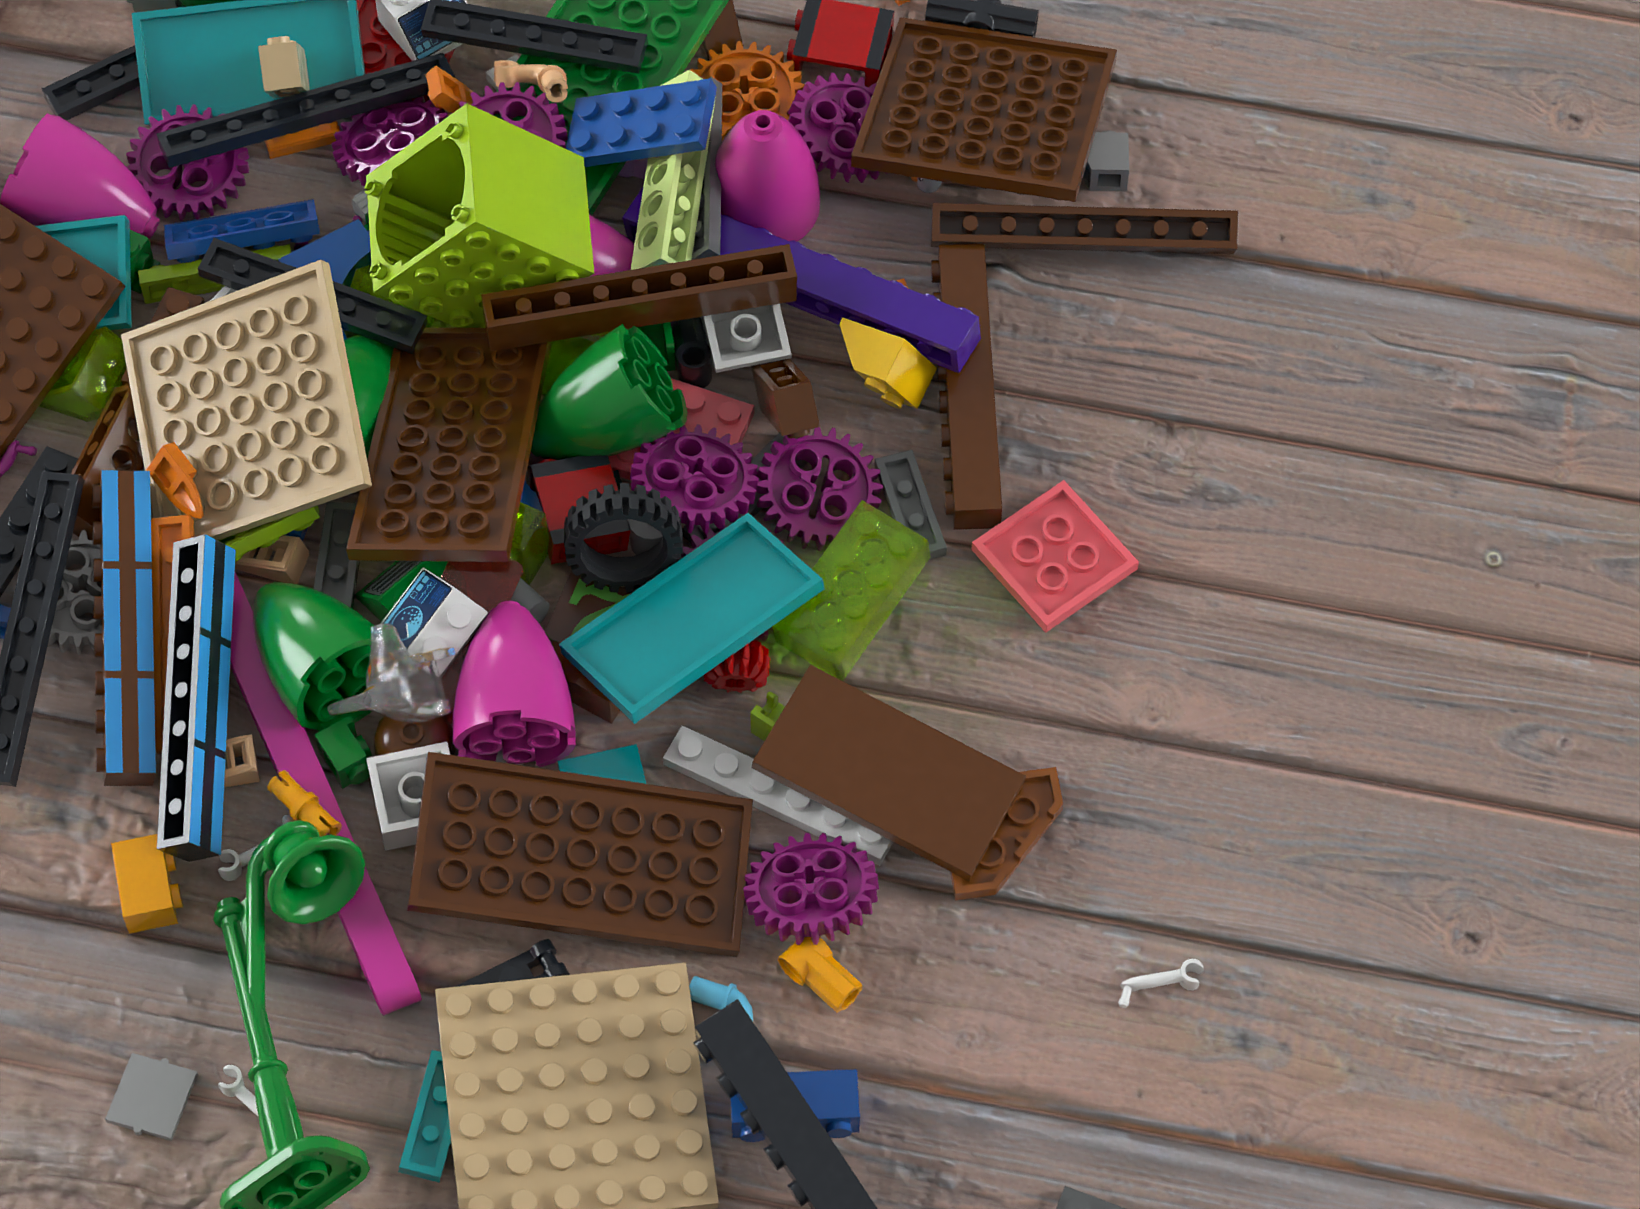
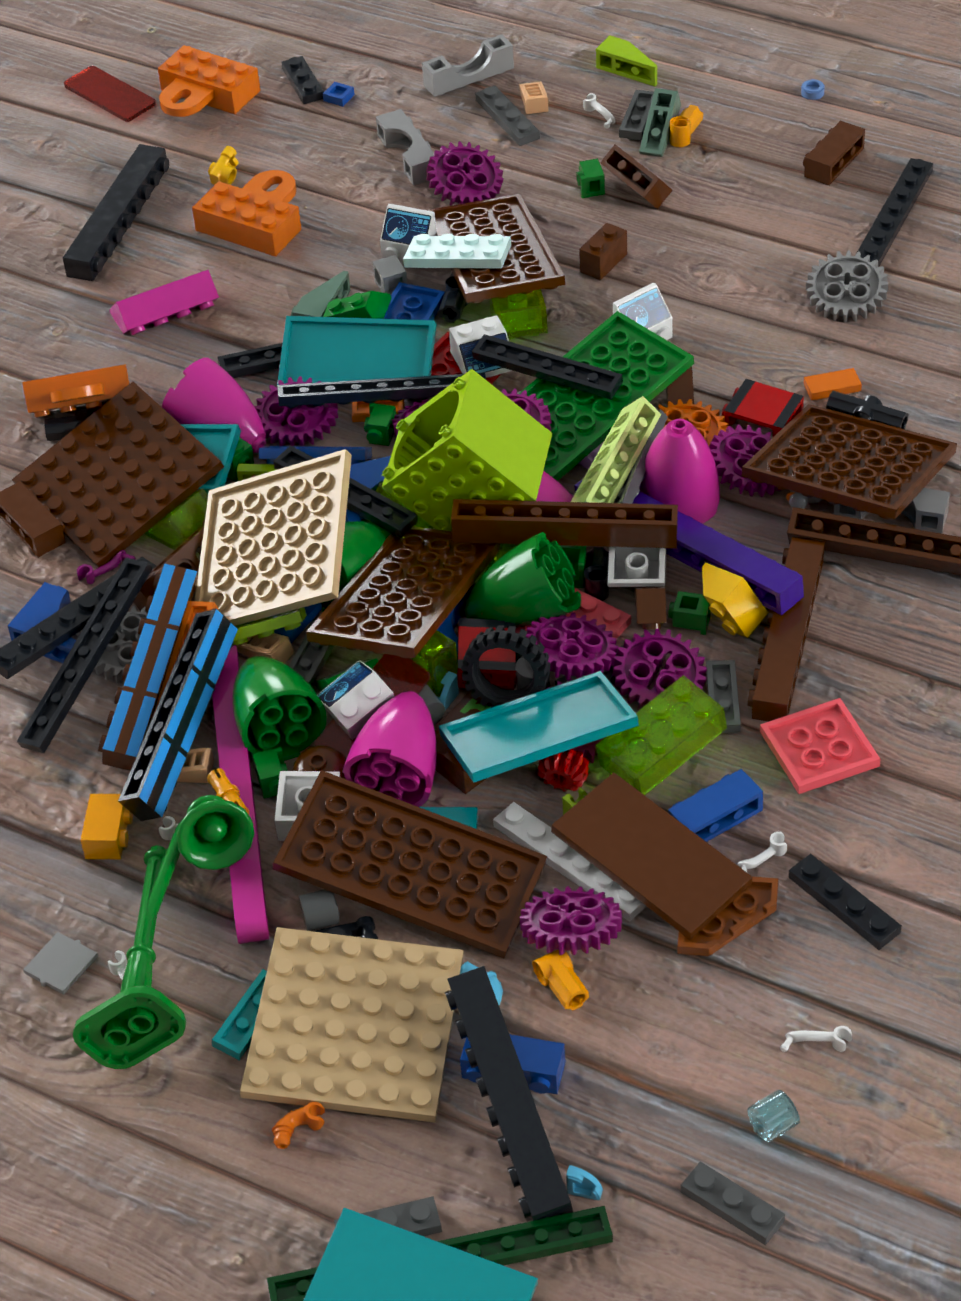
camera: 20 degrees right, 15 degrees down
(175, 478) = (211, 576): orange plate -> none
(283, 67) = (373, 358): tan brick -> none
(315, 160) = (379, 424): none -> green brick
(399, 683) = (317, 723): clear piece -> none
(477, 946) = (319, 909): none -> dark grey piece
(546, 571) = (450, 689): none -> medium azure tile
(549, 78) = (547, 392): light nougat piece -> none
(642, 122) = (601, 422): blue plate -> none
(835, 384) = (690, 612): none -> green brick
(951, 676) = (720, 805): none -> blue brick
(1034, 721) = (777, 848): none -> white piece
(1138, 1104) = (773, 1115): none -> clear light blue piece
(1144, 777) = (845, 901): none -> black plate

